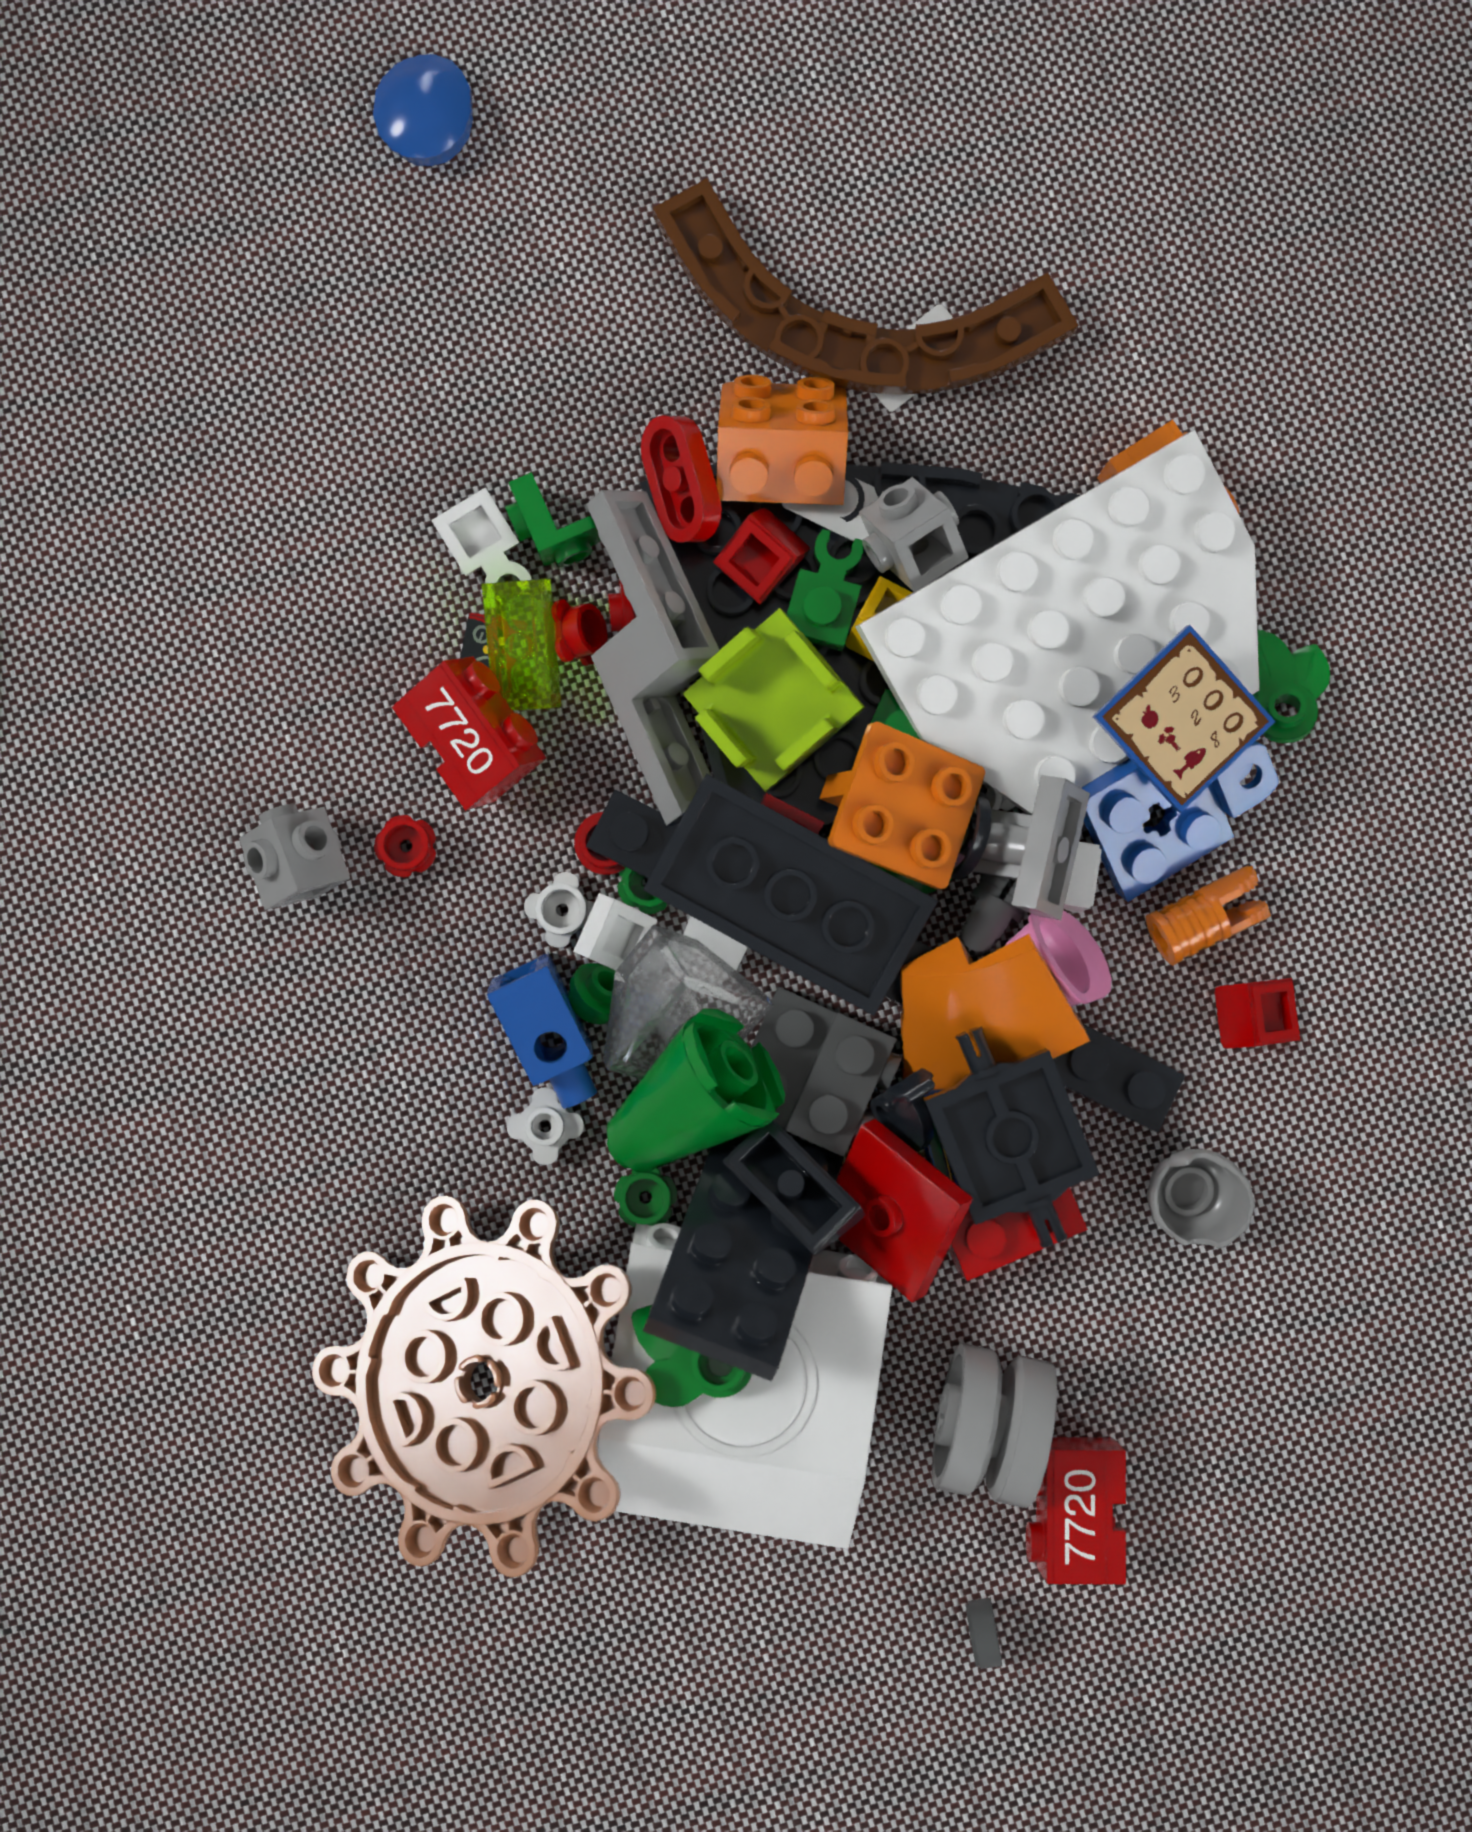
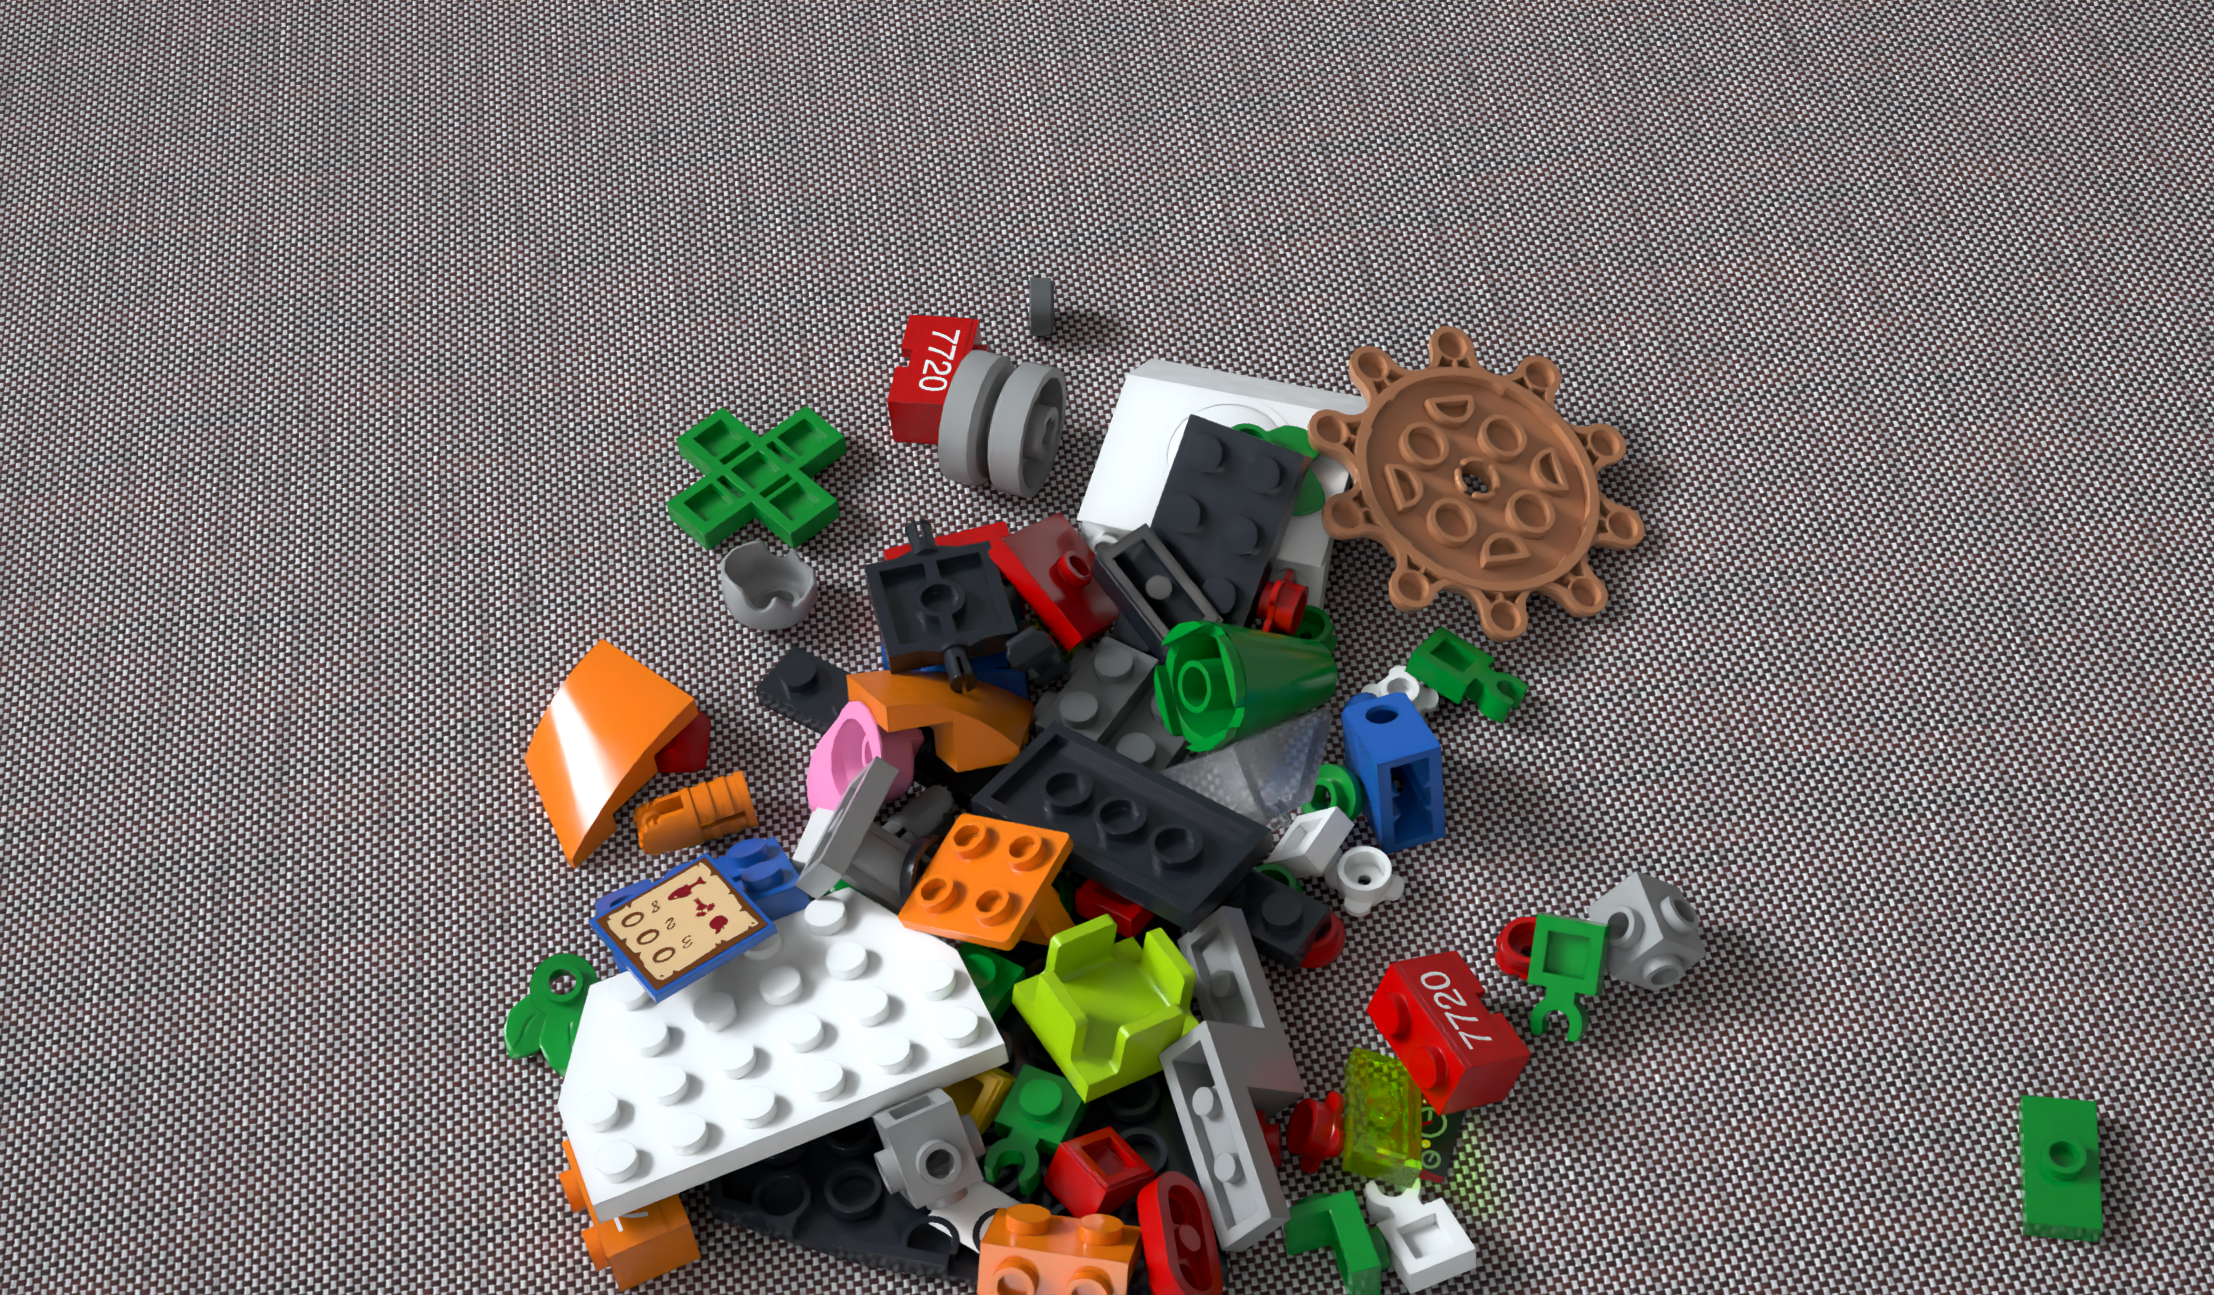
camera: 160 degrees left, 35 degrees down
(363, 805) = (1569, 961): none -> green plate
(489, 1158) = (1464, 671): none -> green plate
(666, 1202) = (1283, 604): none -> red plate
(1246, 1355) = (757, 478): none -> green plate
(1320, 983) = (602, 744): none -> orange slope

